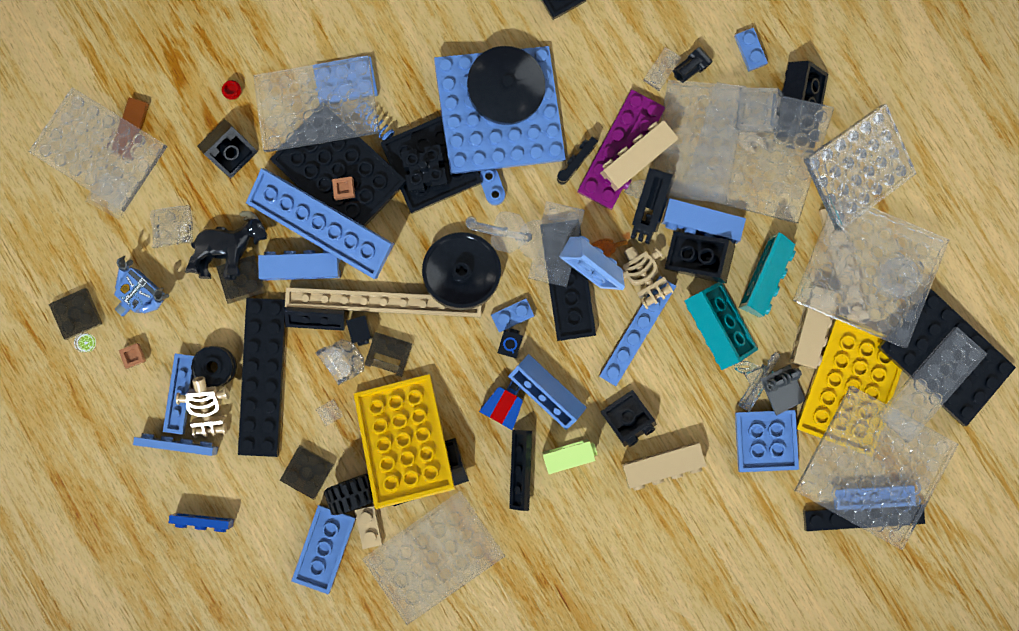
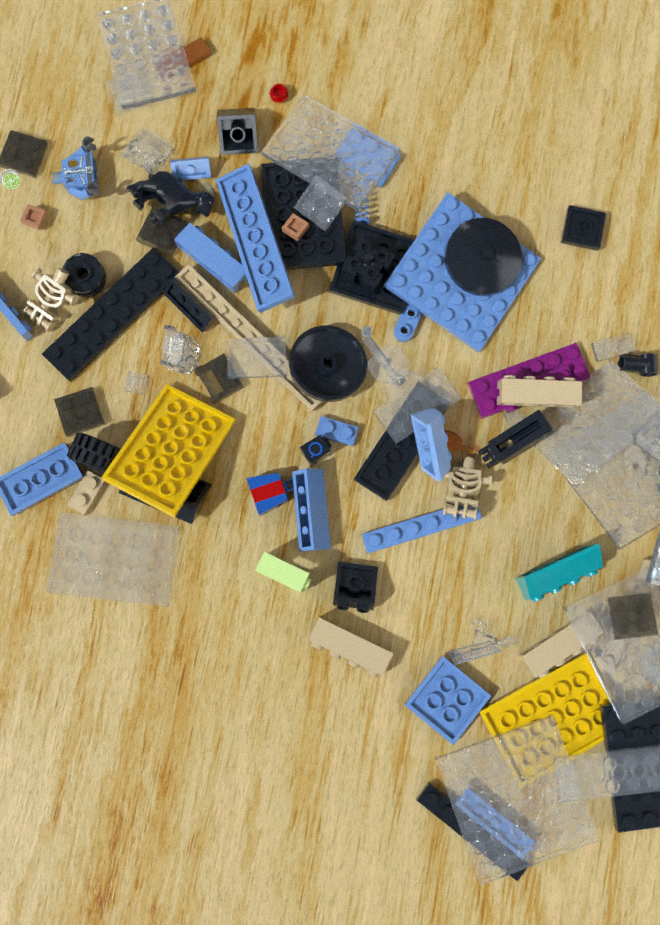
camera: 35 degrees right, 5 degrees down
(180, 382) = (25, 285): medium blue plate -> none
(218, 210) = (191, 168): none -> medium blue plate
(346, 152) = (320, 203): none -> clear plate
(359, 330) = (213, 342): black brick -> none
(404, 313) = (256, 357): none -> clear tile
(520, 470) = (238, 551): black plate -> none
(576, 161) = (486, 359): black plate -> none
(700, 256) = (520, 512): black slope -> none
(702, 220) = (546, 487): medium blue brick -> none
(721, 325) = (490, 578): teal slope -> none
(783, 389) = (496, 671): dark grey hinge -> none
(848, 264) = (632, 616): none -> clear smoke plate

